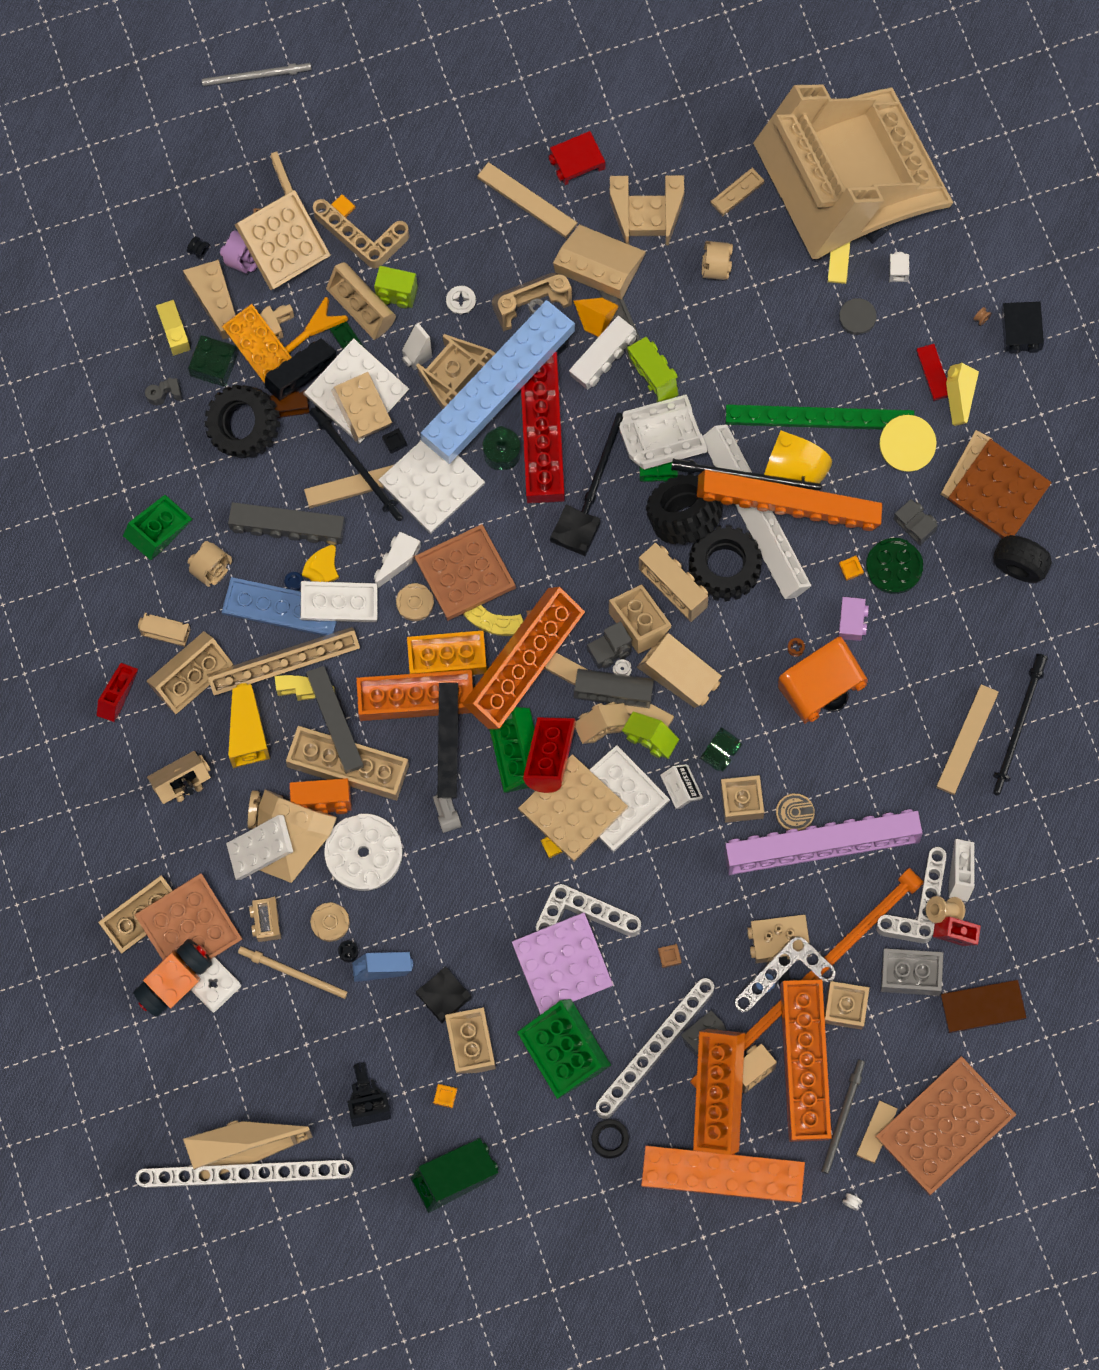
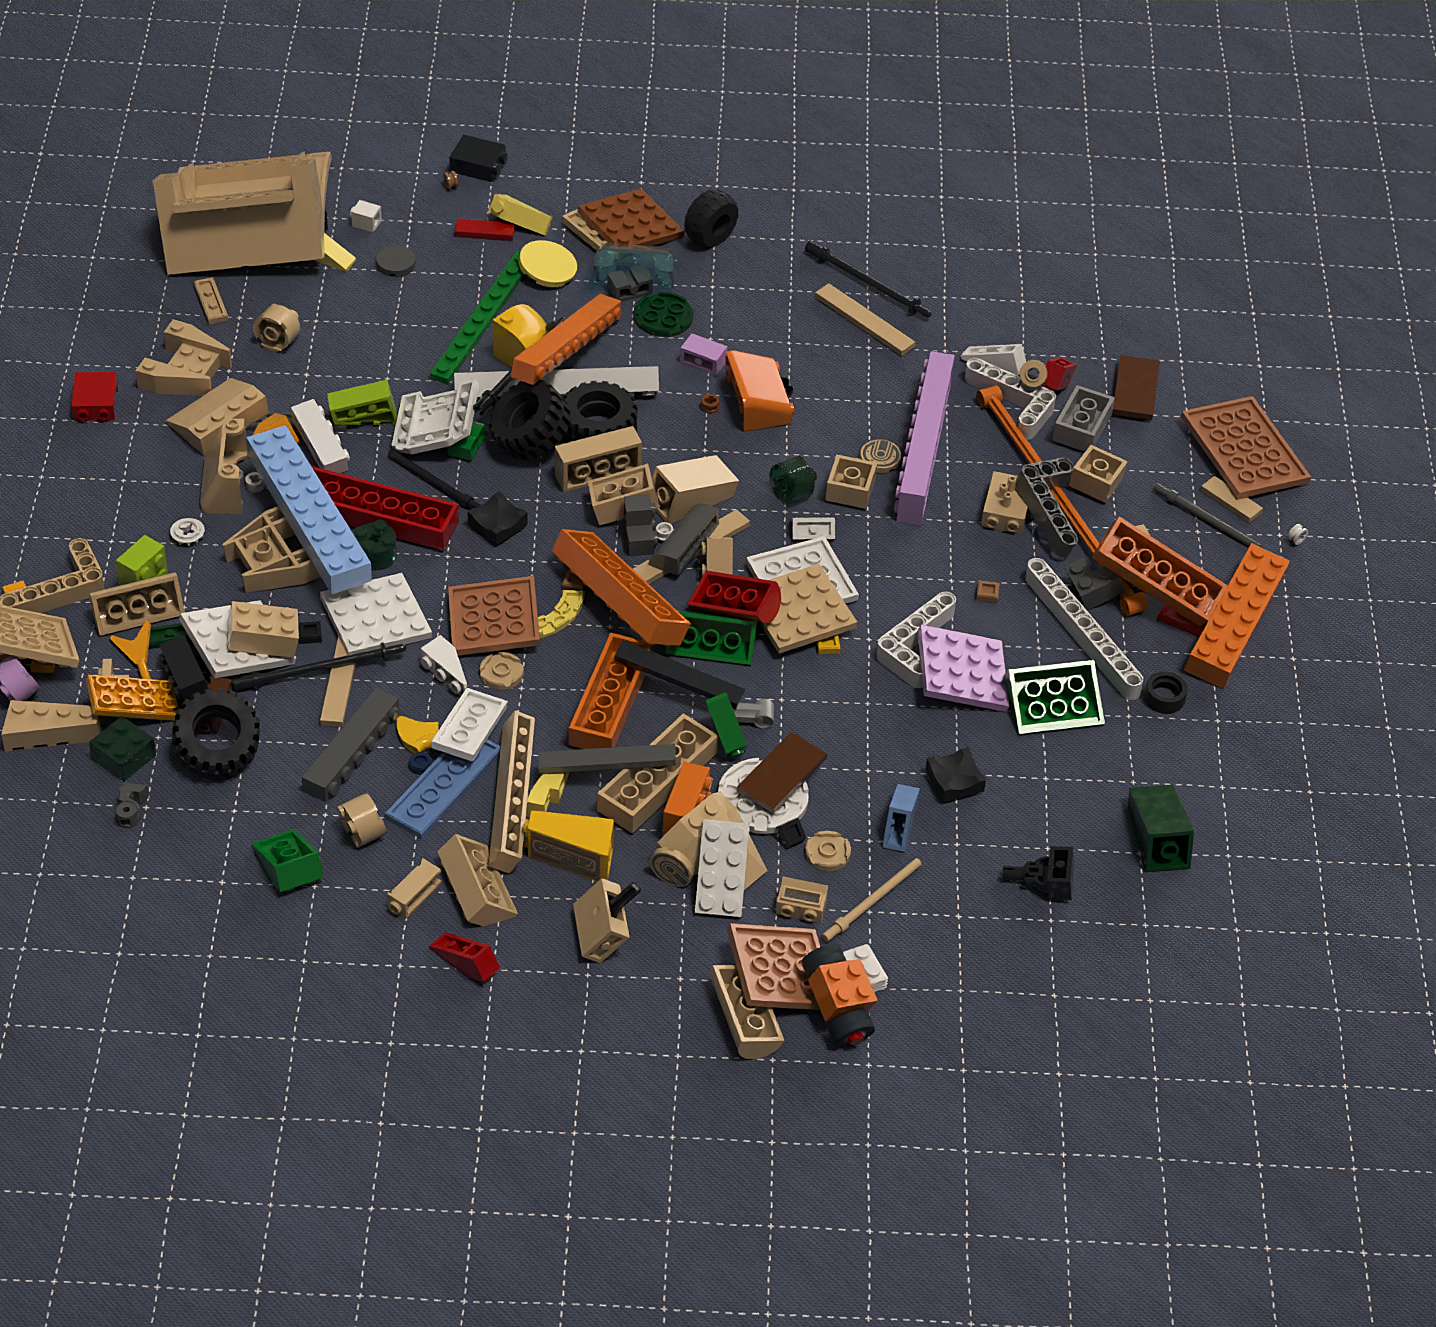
camera: 75 degrees left, 25 degrees down
(173, 327) = (61, 772): light yellow slope -> none
(235, 1170) = (1090, 1010): white beam -> none
(241, 1144) = (1064, 987): tan windscreen -> none
(332, 887) = (791, 832): none -> black tile
(348, 947) = (874, 838): black wheel -> none
(383, 858) = (782, 772): none -> reddish brown tile
(411, 795) = (726, 725): none -> green slope
(417, 348) = (223, 565): white slope -> none
(445, 1096) = (1066, 813): light orange tile -> none
(447, 652) = (577, 654): light orange brick -> none
(470, 1041) = (1019, 758): tan slope -> none
(527, 200) = (111, 449): tan tile -> none
(651, 734) = (748, 522): lime brick -> none
(805, 1060) = (1165, 518): orange brick -> none
(851, 568) = (649, 343): light orange tile -> none
(939, 514) = (614, 254): none -> clear light blue windscreen

